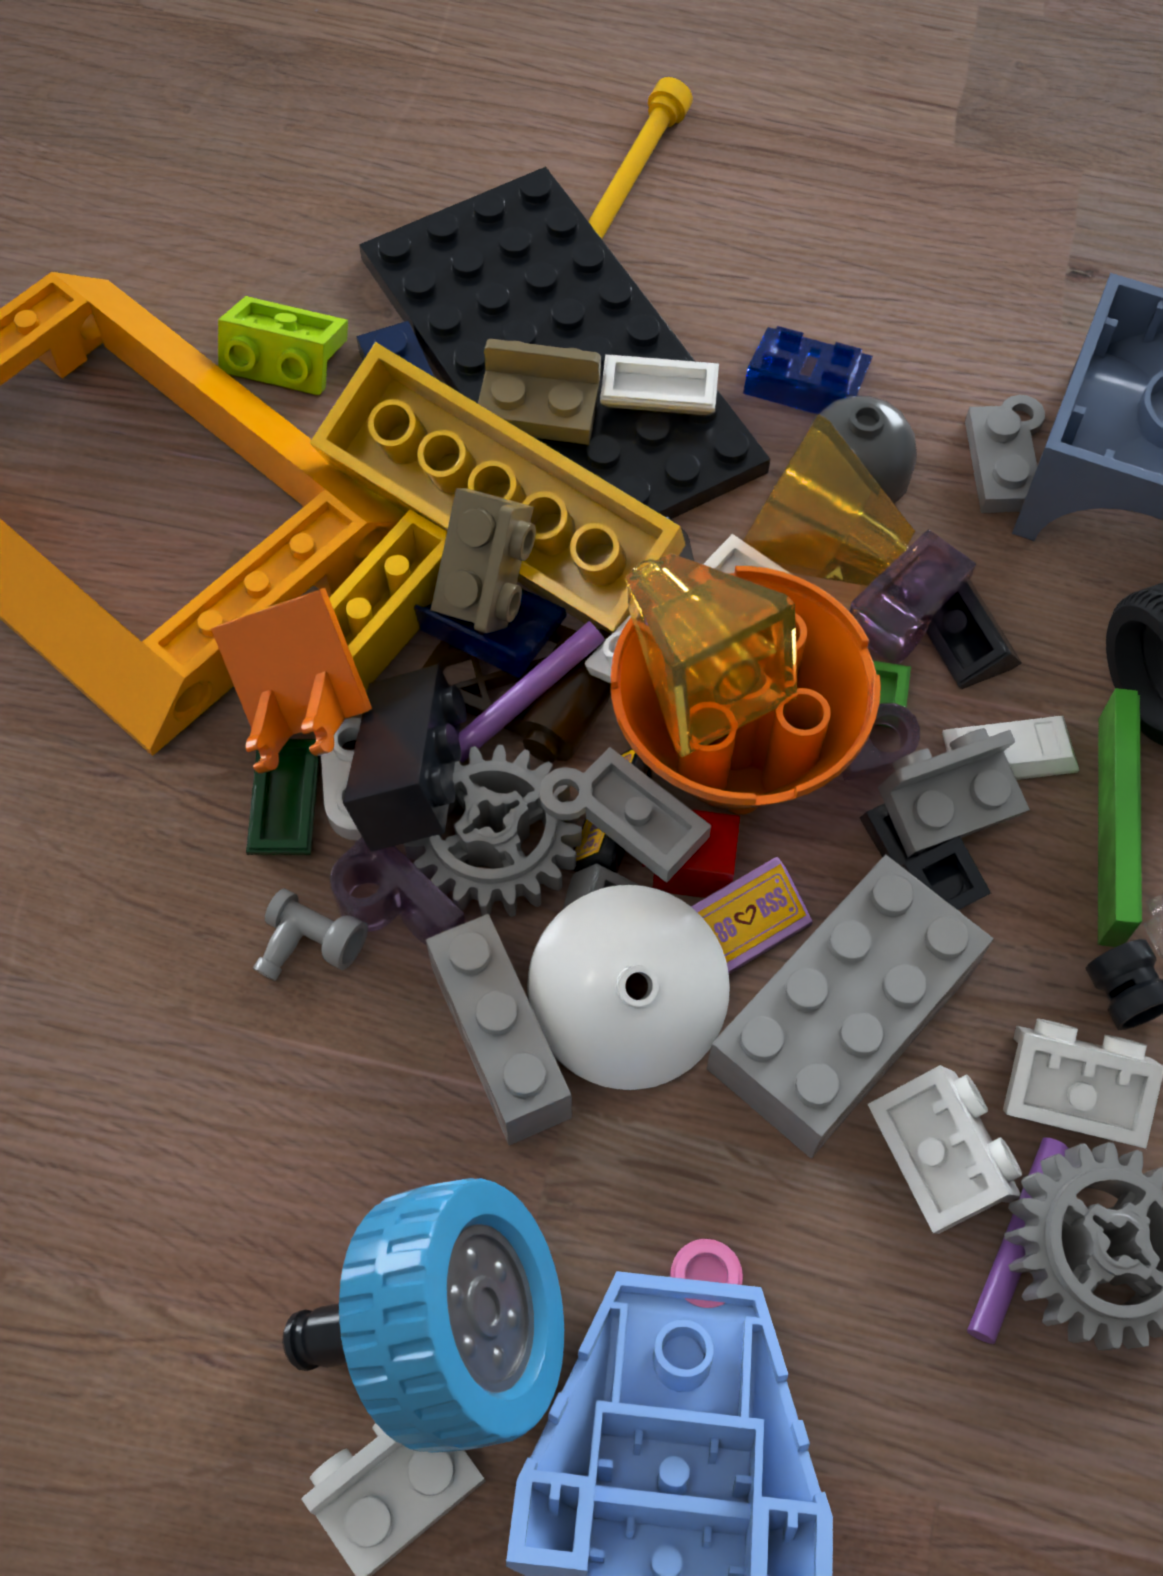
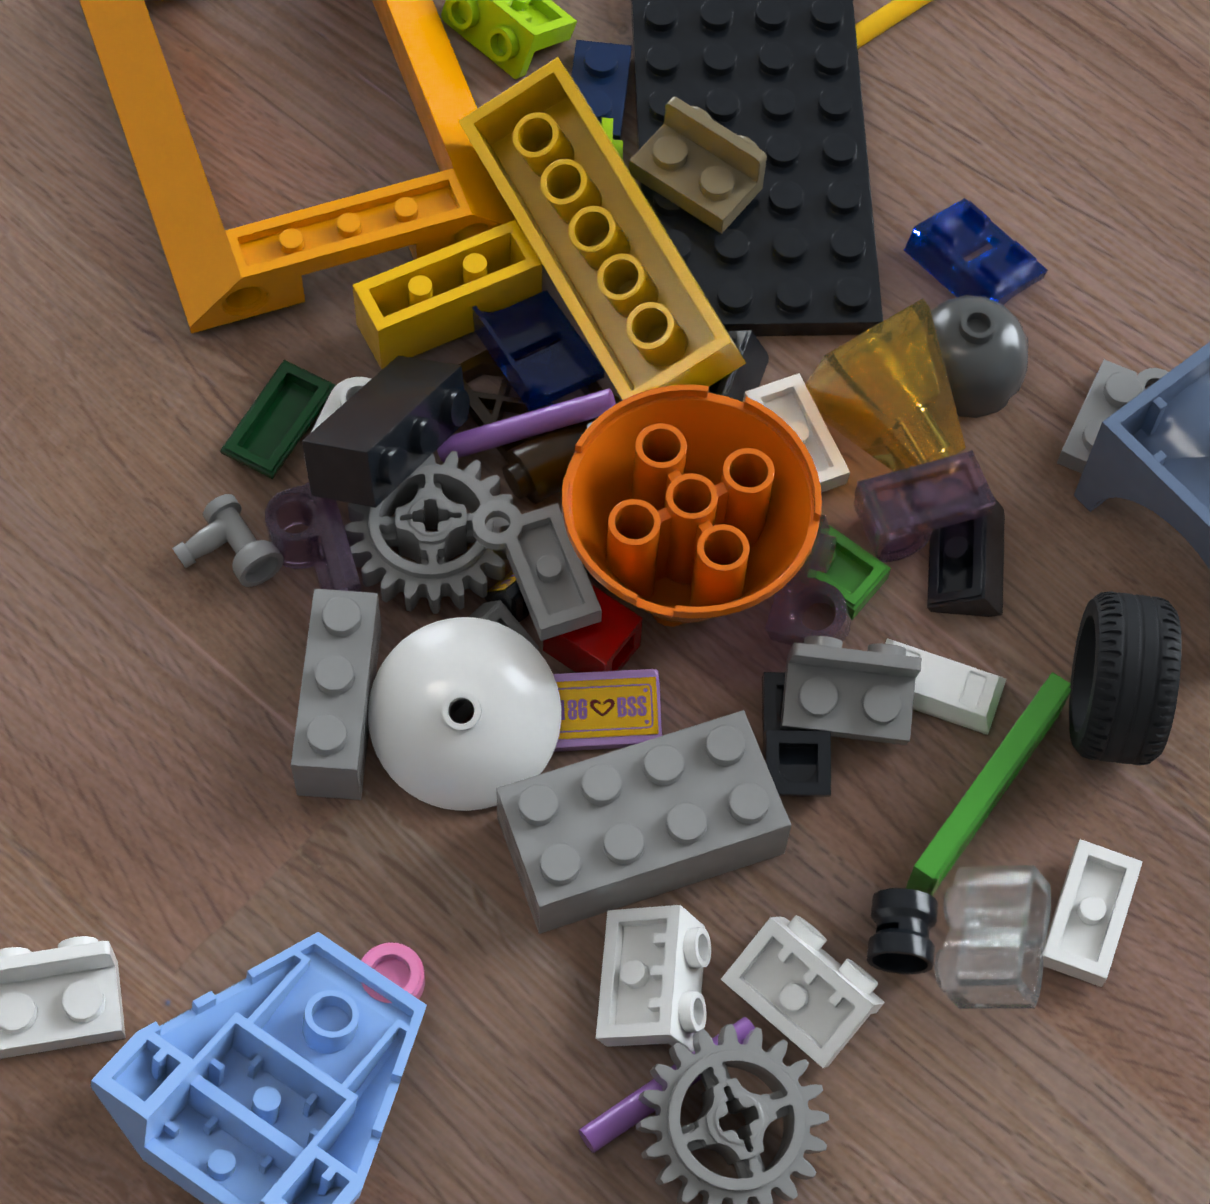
camera: 25 degrees right, 0 degrees up
(291, 674) = (329, 317): orange plate -> none
(443, 1318) = (154, 881): dark azure wheel -> none
(483, 559) = (547, 292): dark tan bracket -> none
(659, 385) = (815, 206): white tile -> none
(712, 647) = (661, 454): clear yellow slope -> none

